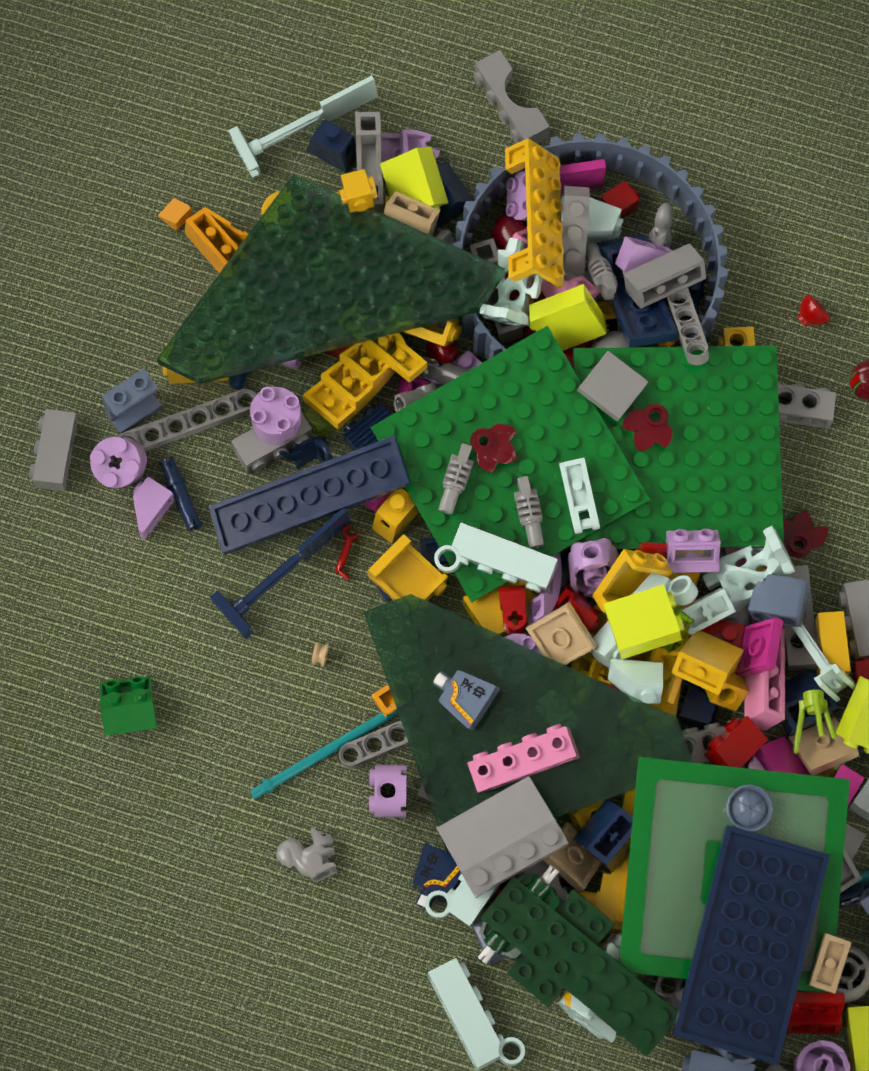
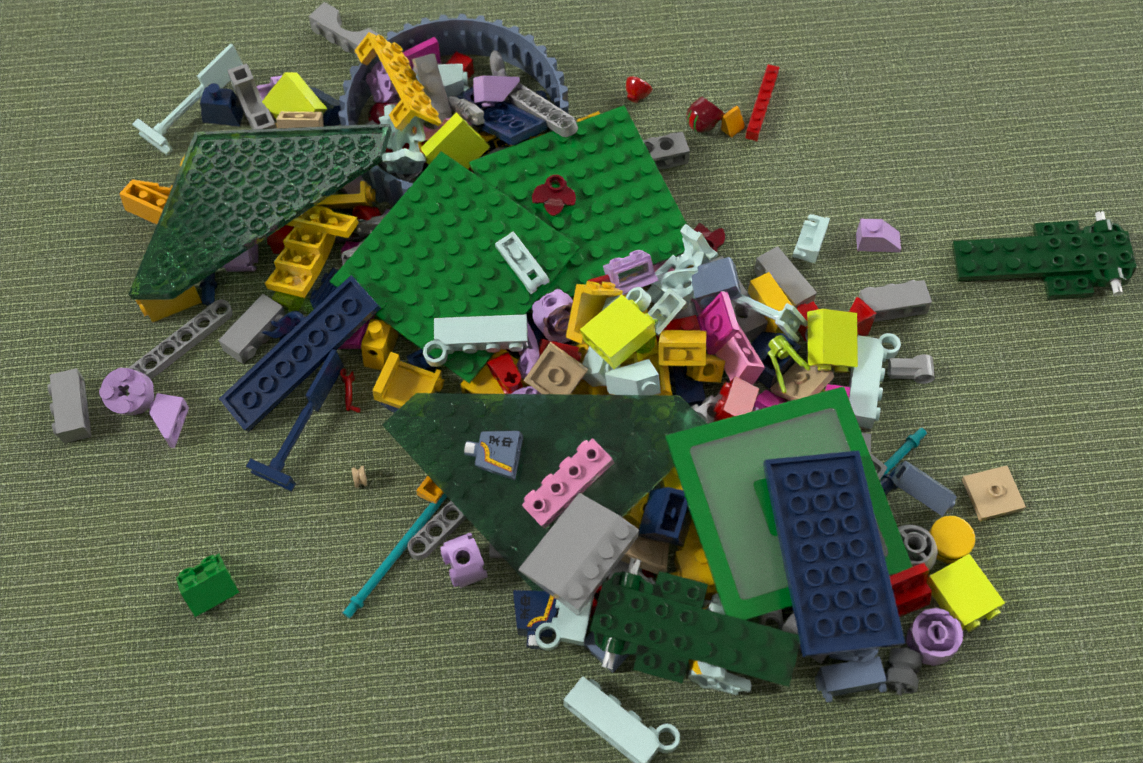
camera: 20 degrees left, 10 degrees down
(131, 401) = (120, 340): sand blue panel -> none
(176, 214) = (111, 199): light orange slope -> none
(176, 484) = (191, 398): dark blue pin -> none
(275, 415) = (247, 304): lavender brick -> none
(311, 860) = (421, 648): light grey animal -> none
(358, 190) = (250, 118): yellow brick -> none
(455, 479) = (416, 290): light grey hinge -> none
(497, 448) = (440, 253): dark red plate -> none
(529, 512) = (486, 290): light grey hinge -> none
(612, 386) = (512, 174): light grey tile -> none
(665, 275) = (516, 91): light grey brick -> none
(749, 807) = (776, 438): sand blue hat -> none
(829, 963) = (901, 541): tan plate -> none

